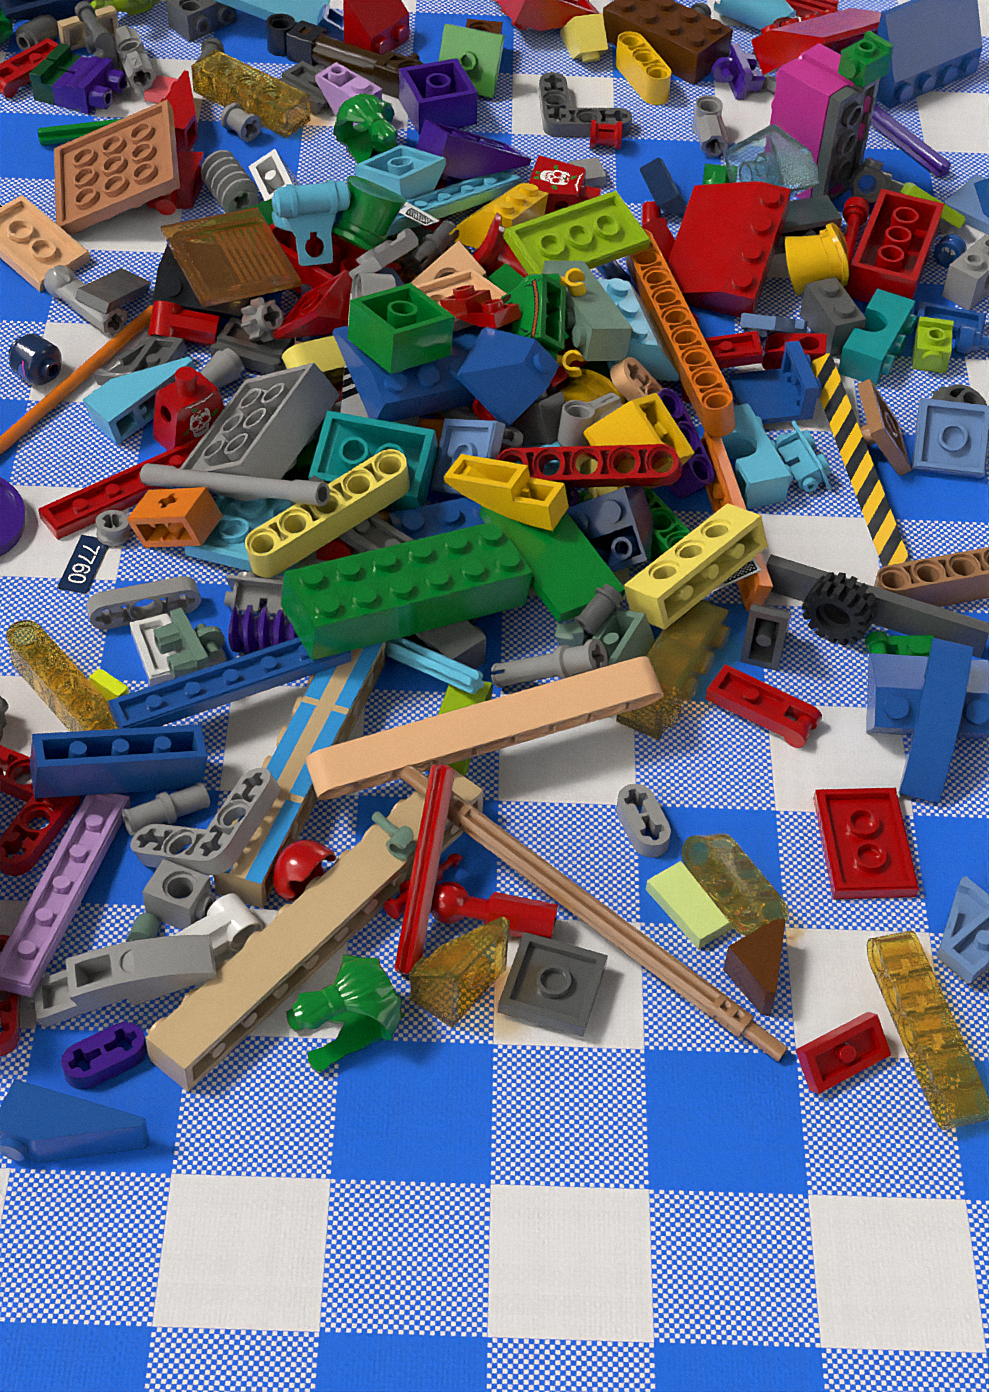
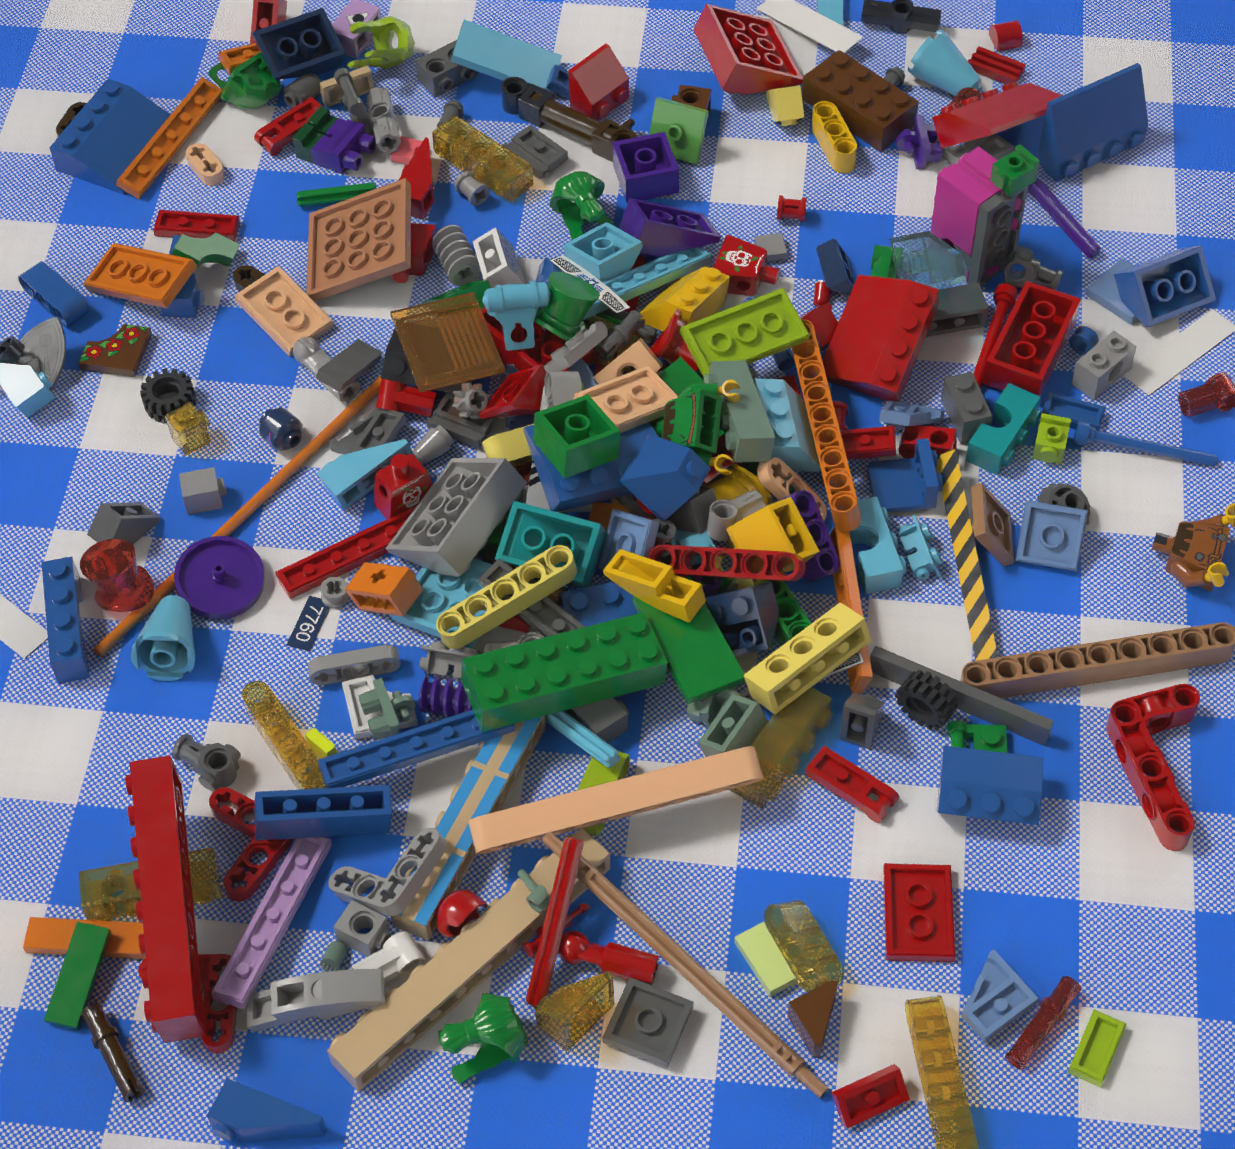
camera: 10 degrees right, 5 degrees up
(103, 1055) = (296, 1059): dark purple beam -> none
(166, 808) = (359, 851): light grey pin -> none
(297, 491) = (479, 580): light grey piece -> none
(341, 84) = (565, 158): lavender slope -> none
(479, 308) = (646, 414): red slope -> none
(562, 663) = (686, 743): light grey pin -> none
(572, 119) = (763, 187): dark grey beam -> none
(599, 608) = (720, 696): dark grey pin -> none
(650, 817) = (746, 880): light grey beam -> none
(709, 125) = (886, 201): light grey piece -> none
(817, 258) = (958, 351): yellow hat -> none
(937, 721) = (989, 810): blue slope -> none
(948, 214) = (1088, 302): lime tile -> none

